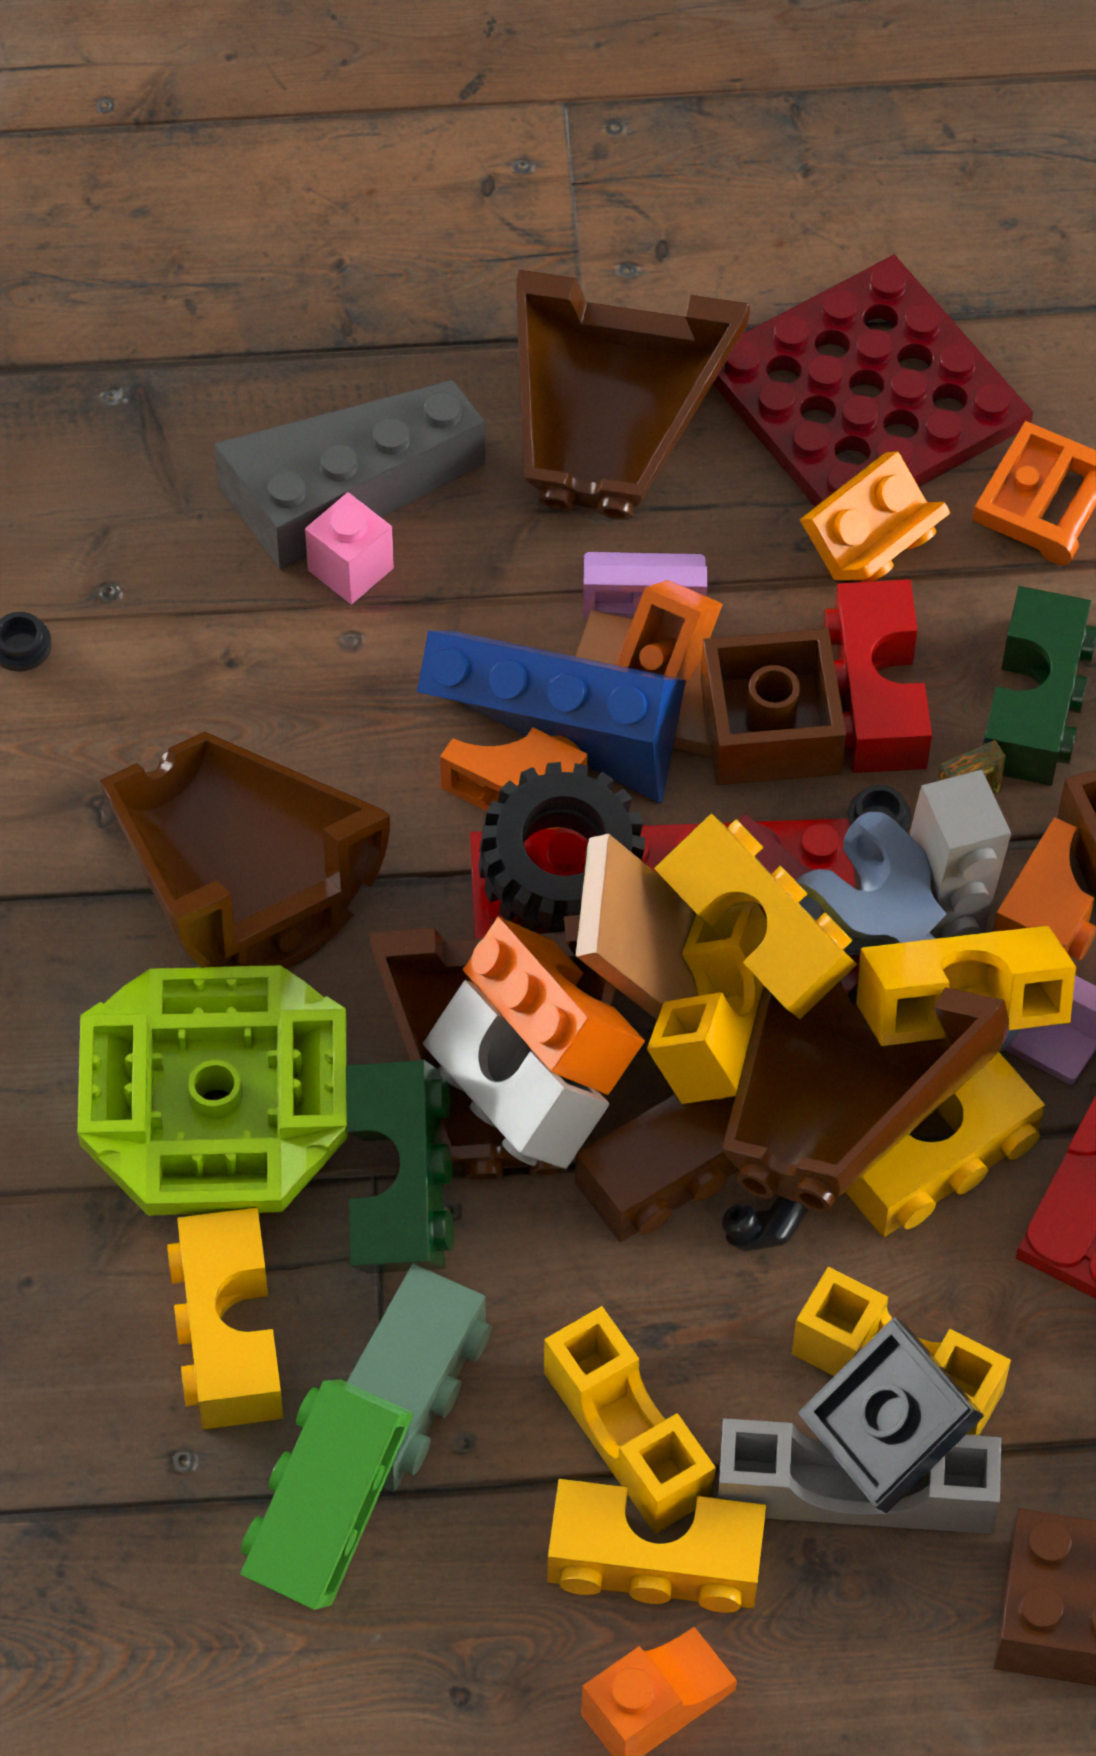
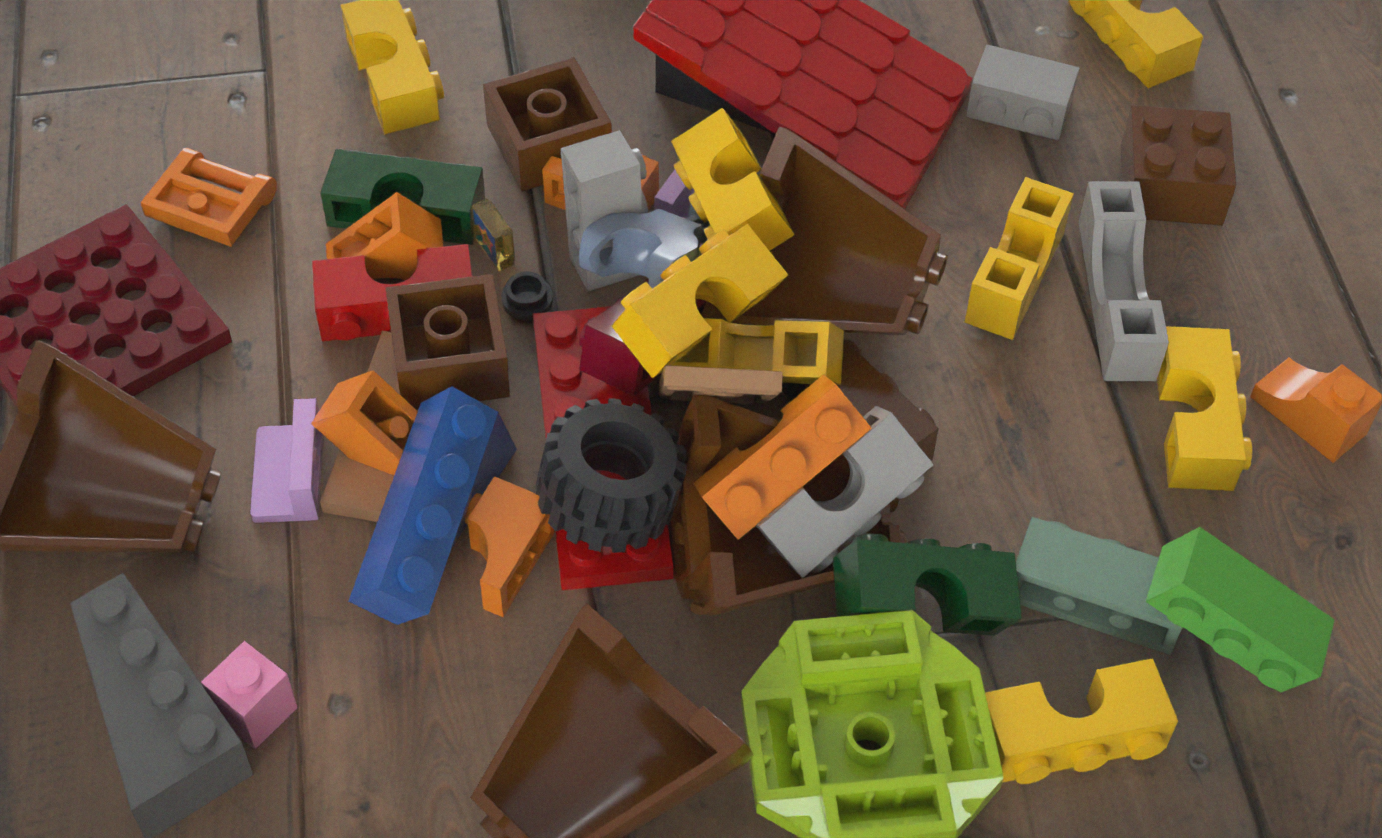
camera: 95 degrees left, 5 degrees down
(604, 1392) = (1085, 442): yellow arch -> none
(762, 1229) = (908, 355): black arm -> none
(872, 520) = (242, 297): light orange bracket -> none
(890, 1415) = (1085, 244): plate -> none
(954, 666) = (389, 238): none -> orange arch

